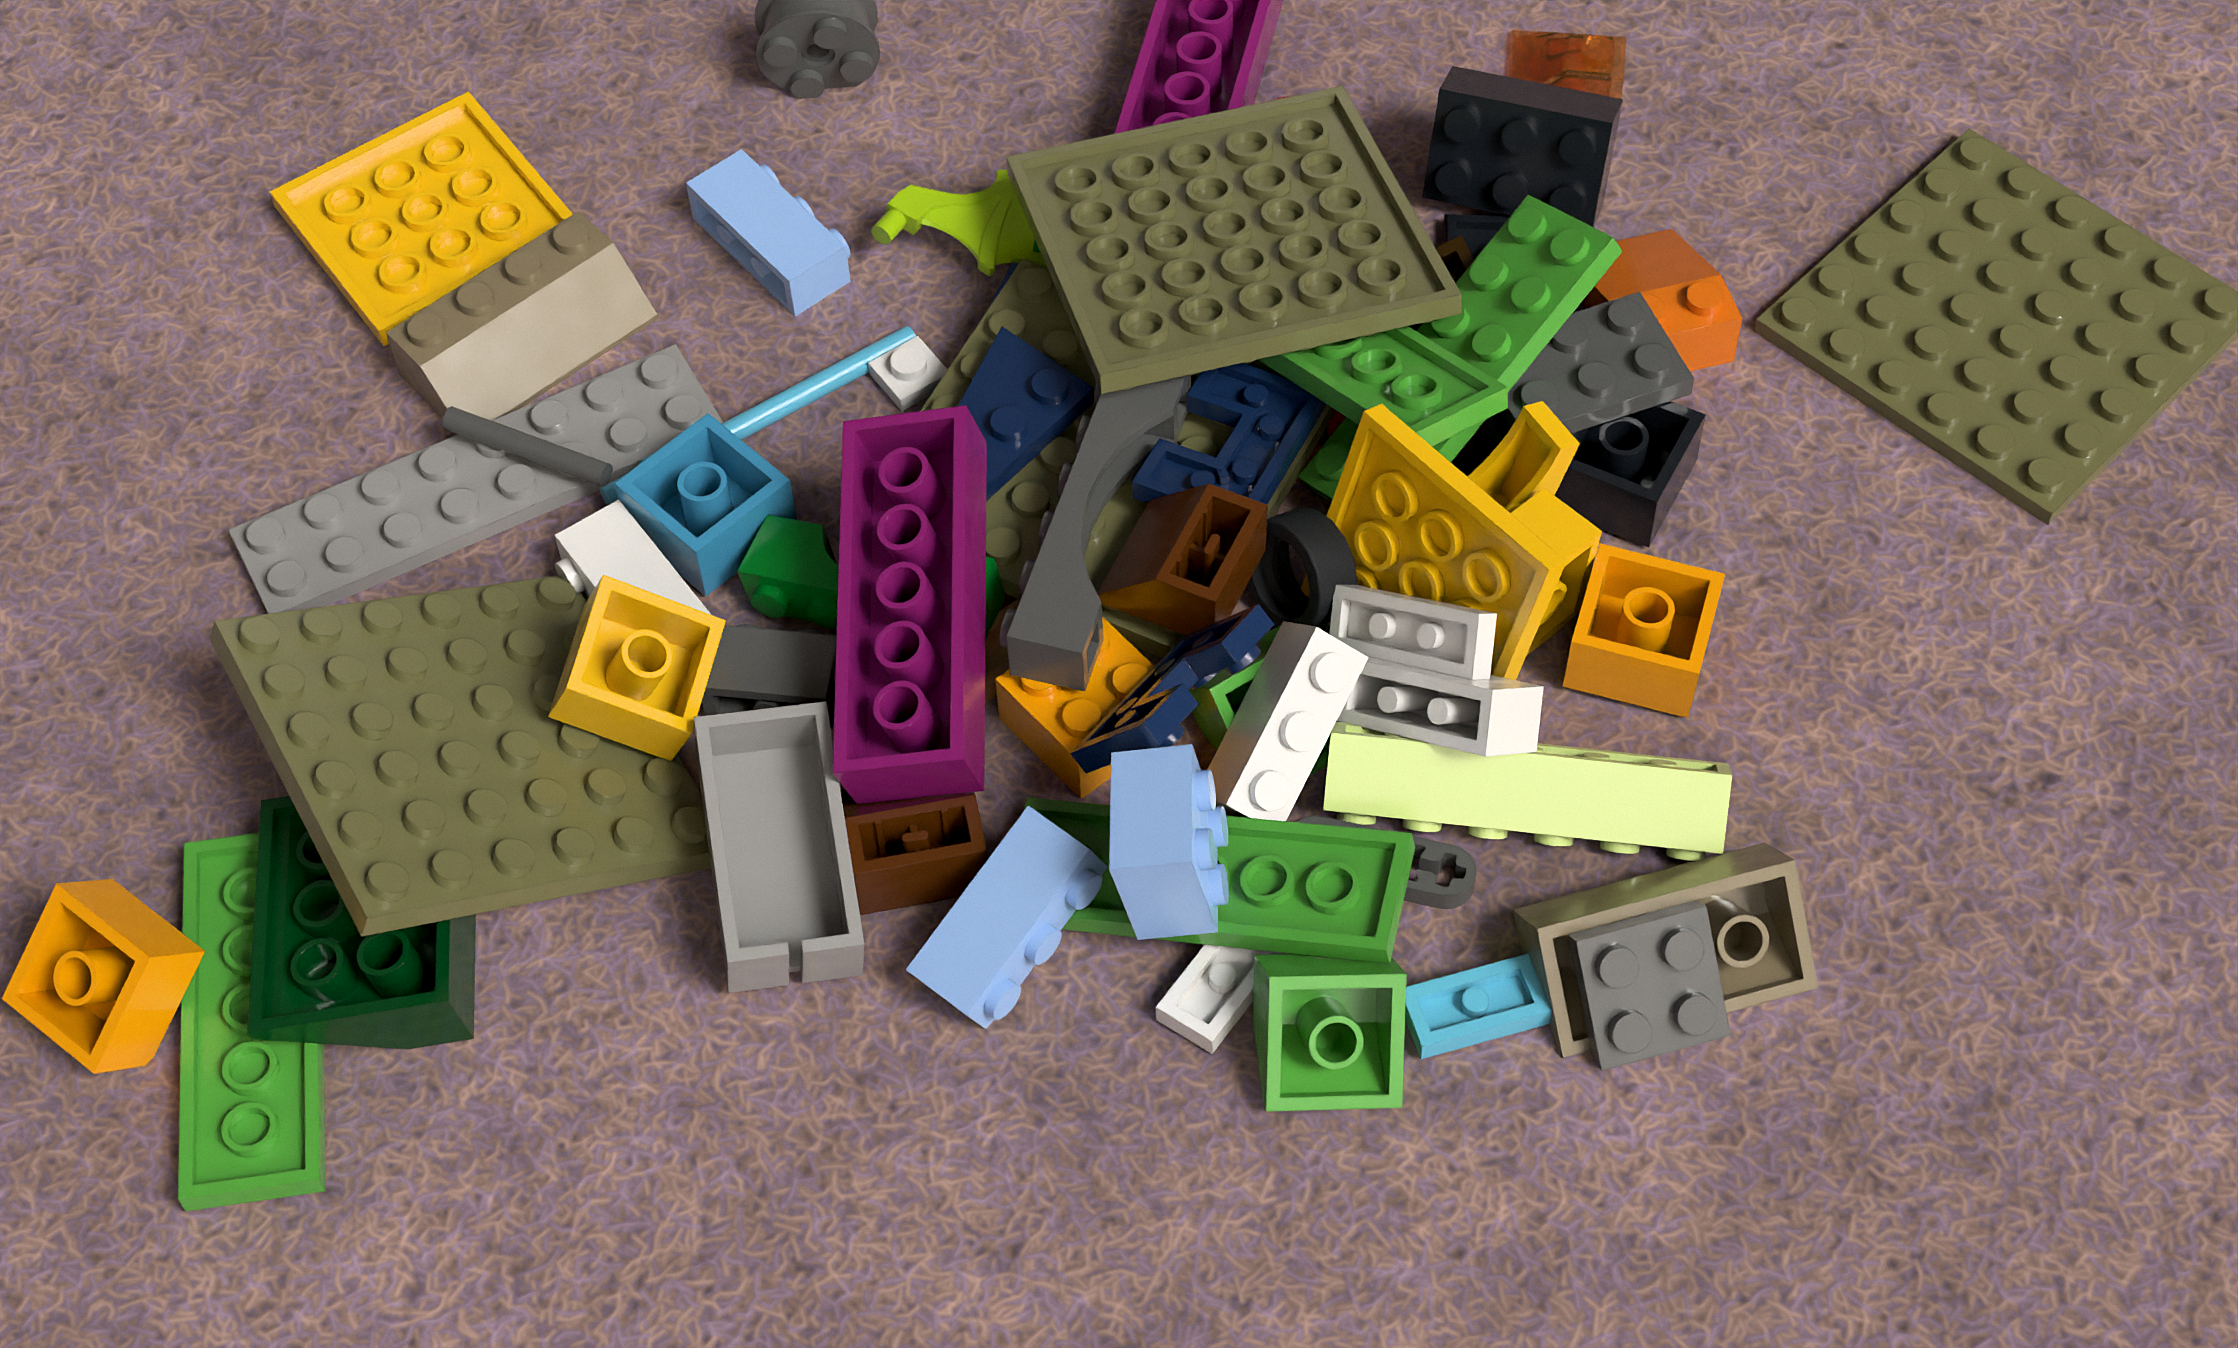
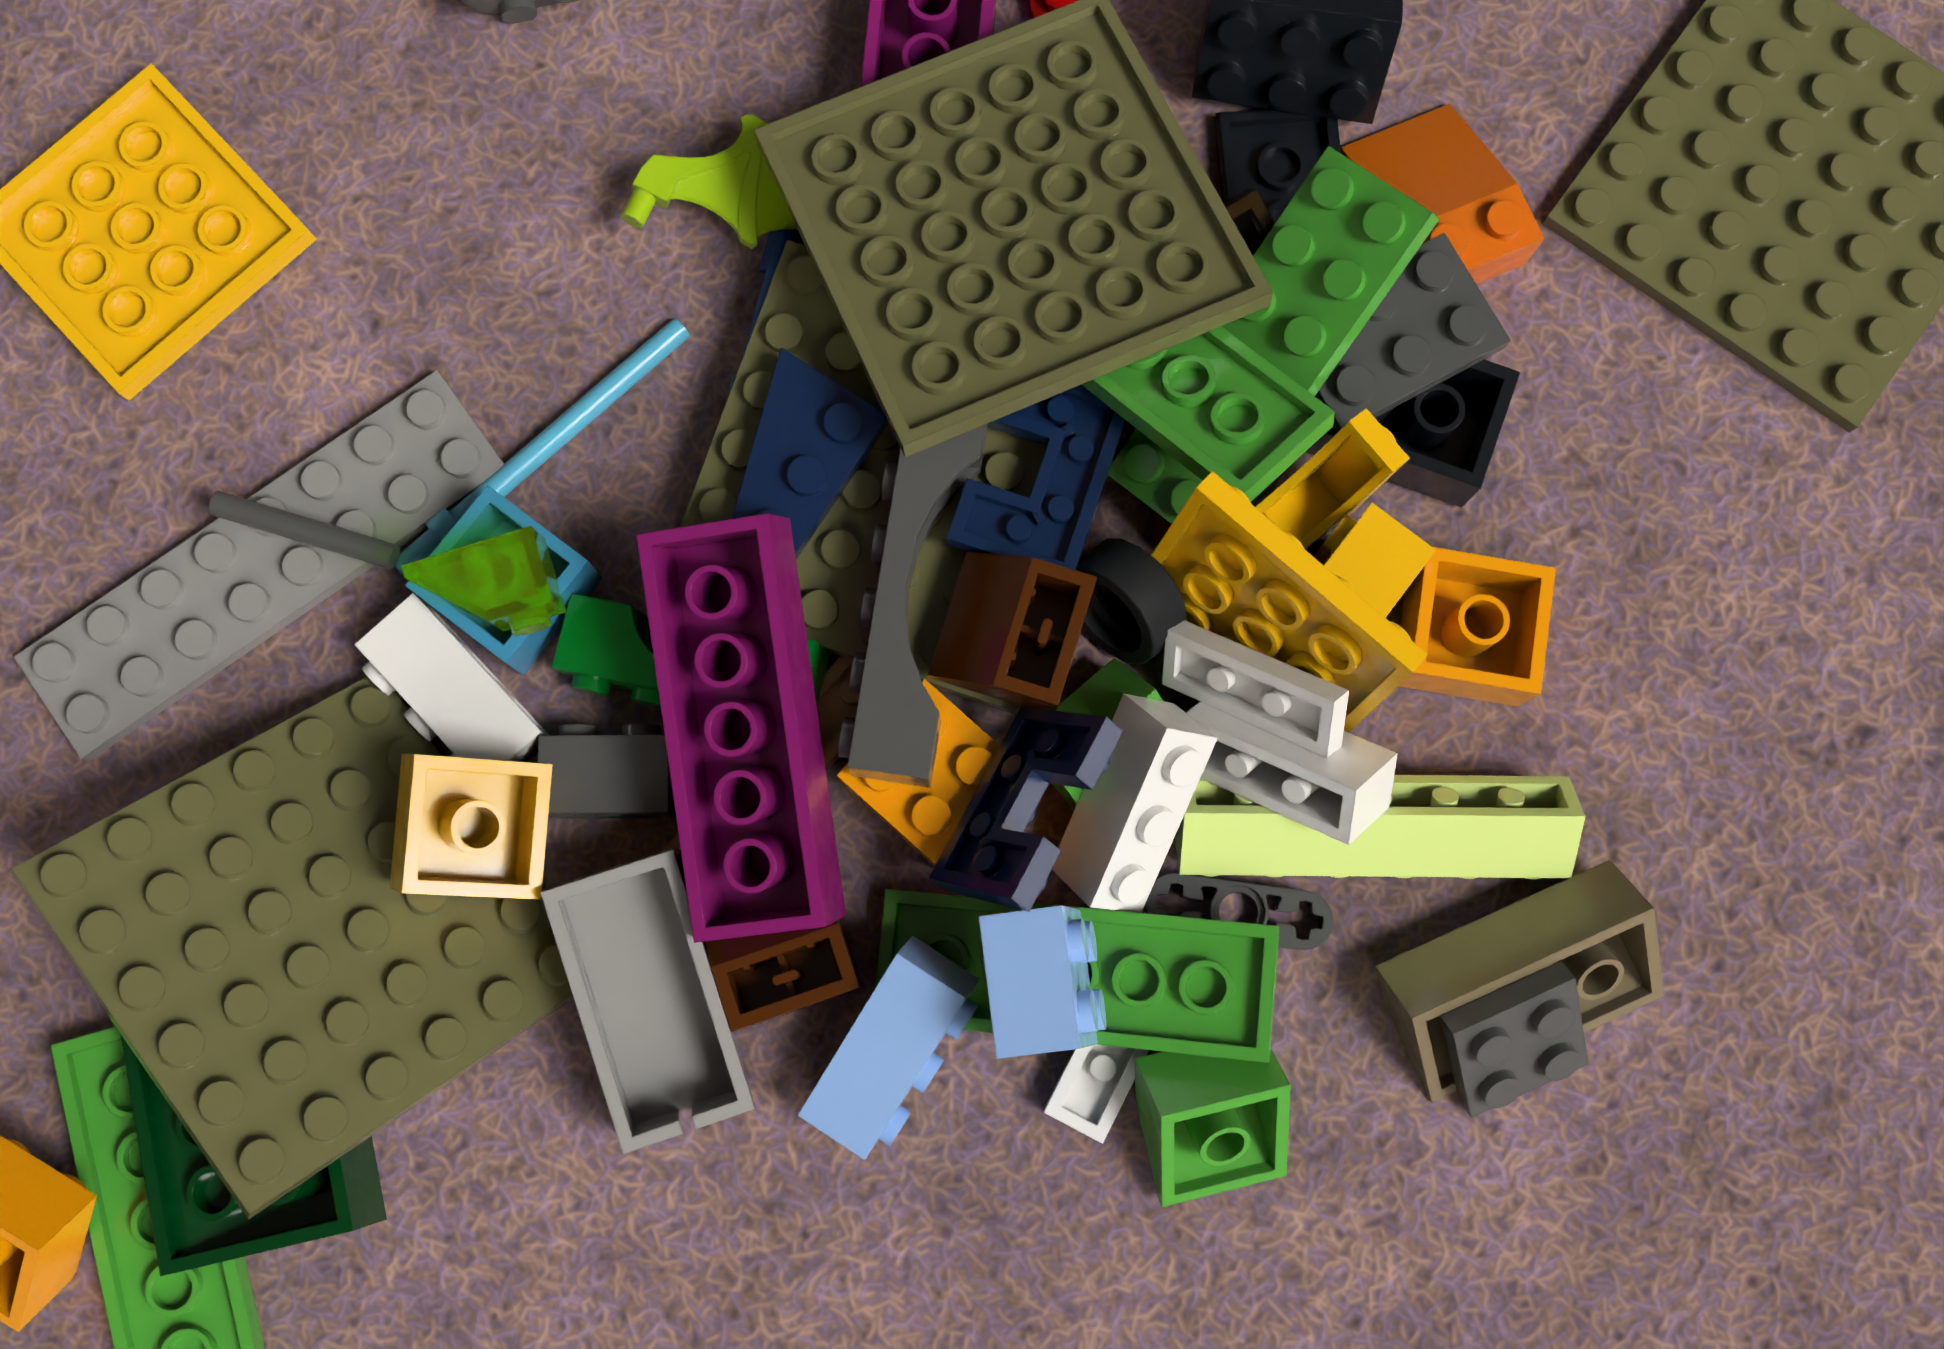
camera: 10 degrees left, 25 degrees up
(522, 323) = (270, 369): slope -> none
(697, 474) = (496, 580): none -> clear neon green slope
(769, 231) = (511, 214): light blue brick -> none
(908, 373) = (687, 376): white plate -> none
(1476, 1006) = (1348, 1066): medium azure plate -> none

